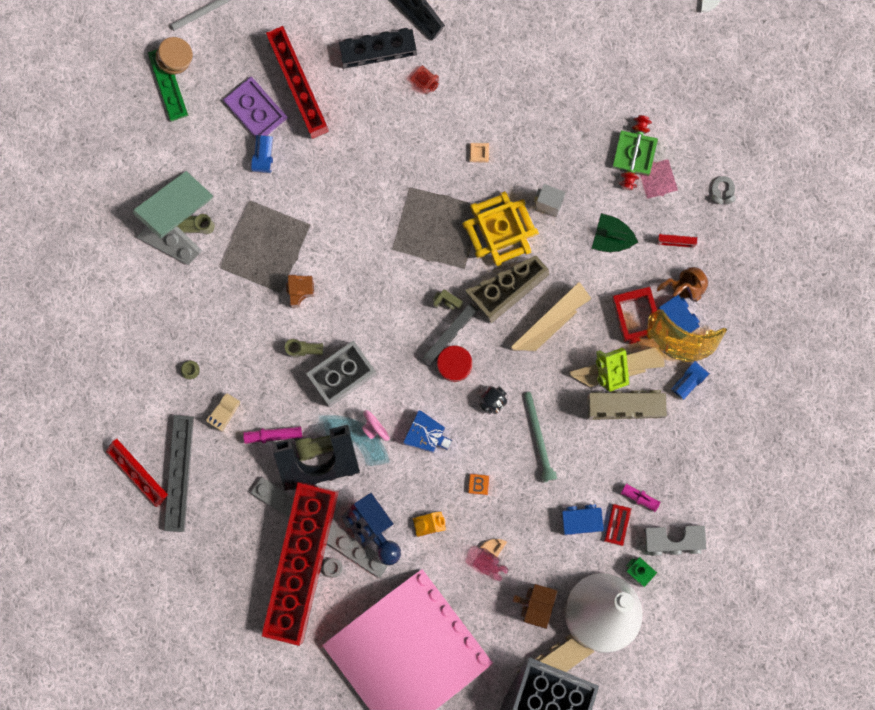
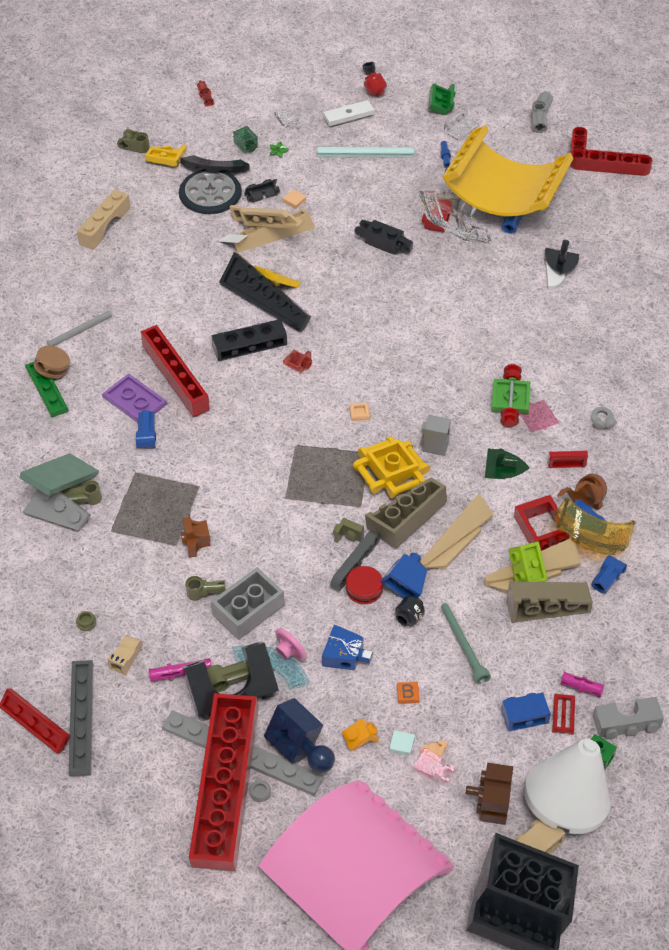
camera: 15 degrees left, 30 degrees down
(465, 536) = (402, 743): none -> light aqua tile
(495, 362) = (406, 576): none -> blue torso

